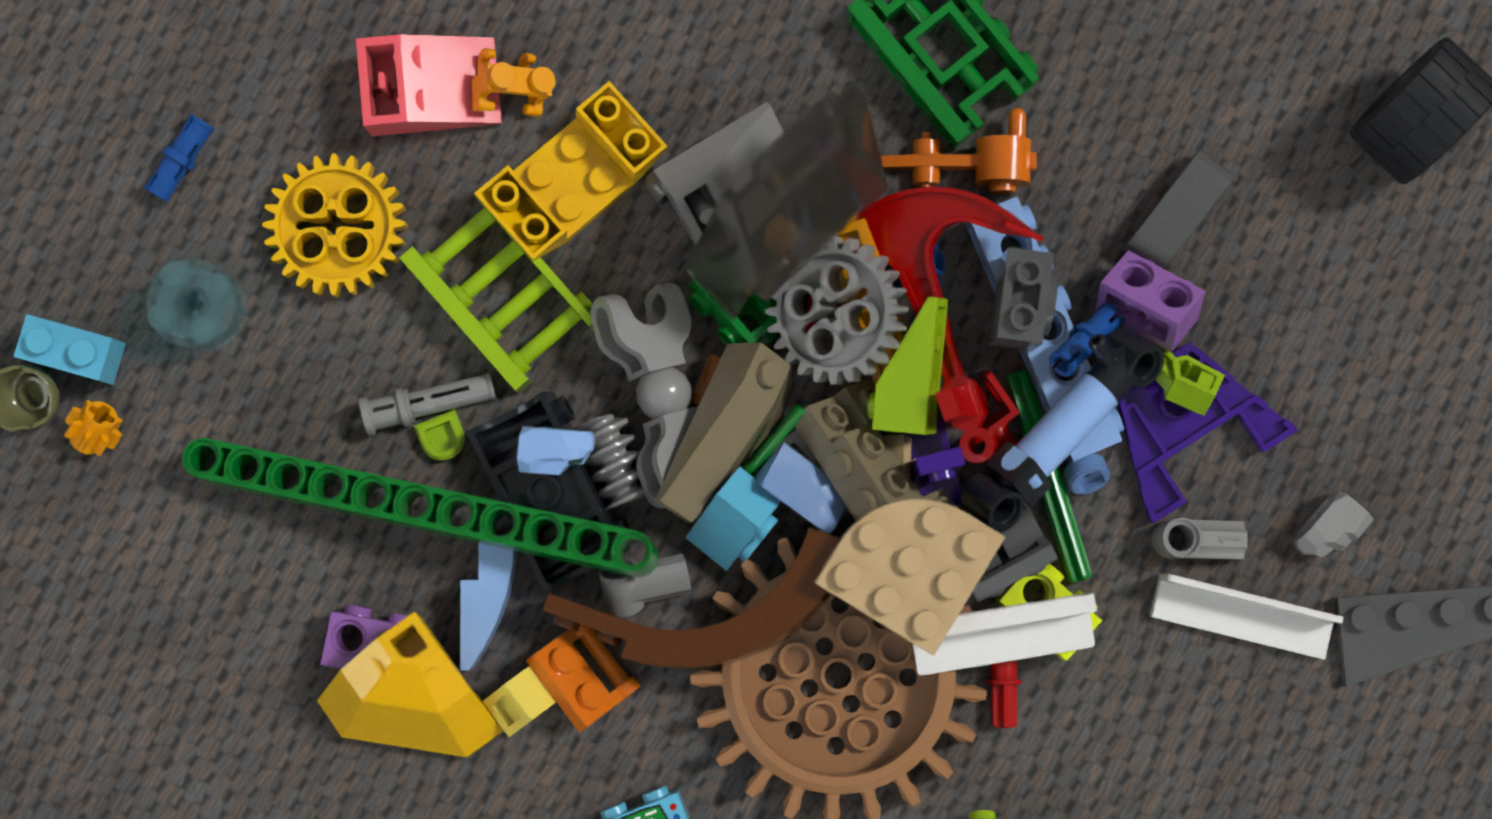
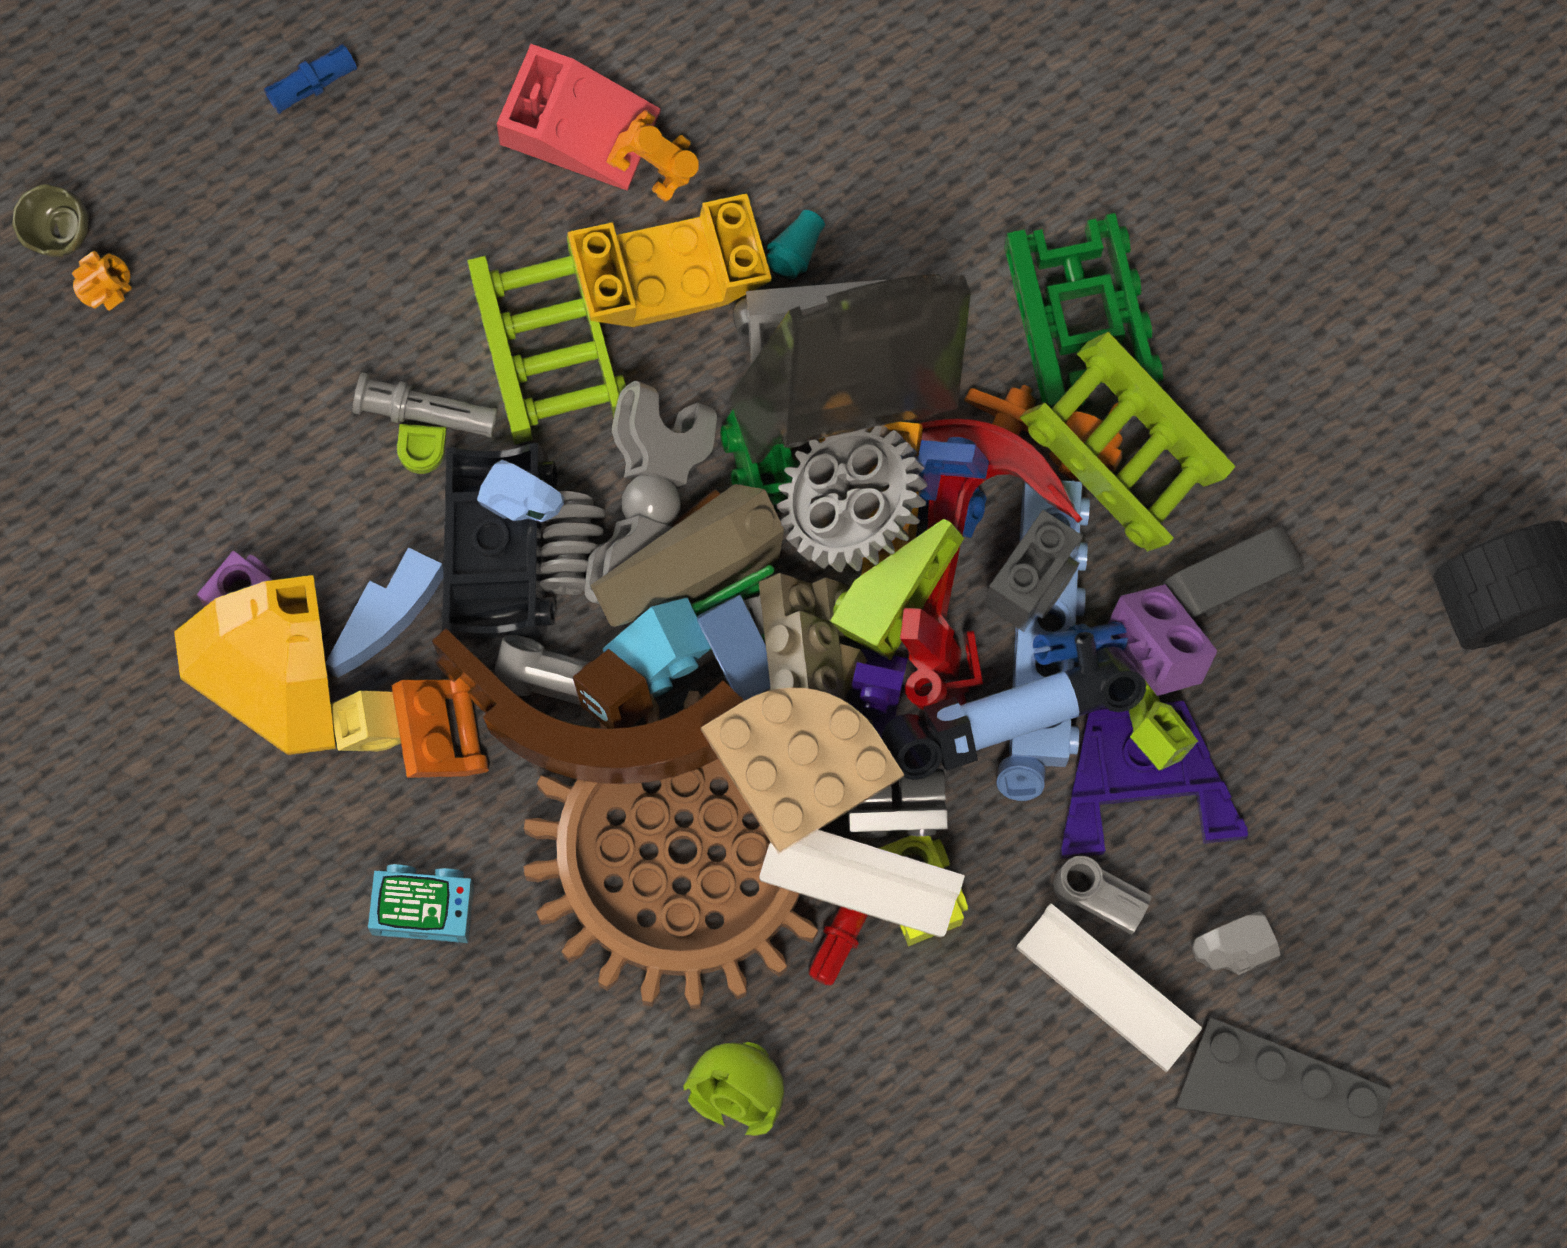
camera: 25 degrees right, 10 degrees down
(69, 349) = (118, 200): medium azure brick -> none
(190, 281) = (257, 191): clear light blue brick -> none
(337, 187) = (403, 240): yellow gear -> none
(399, 497) = (377, 509): green beam -> none
(669, 104) = (793, 248): none -> teal cone
(717, 577) = (613, 691): none -> reddish brown brick
(908, 233) = (951, 458): none -> blue bracket
(1056, 498) = (981, 777): green axle -> none
(1069, 115) = (1168, 428): none -> lime fence

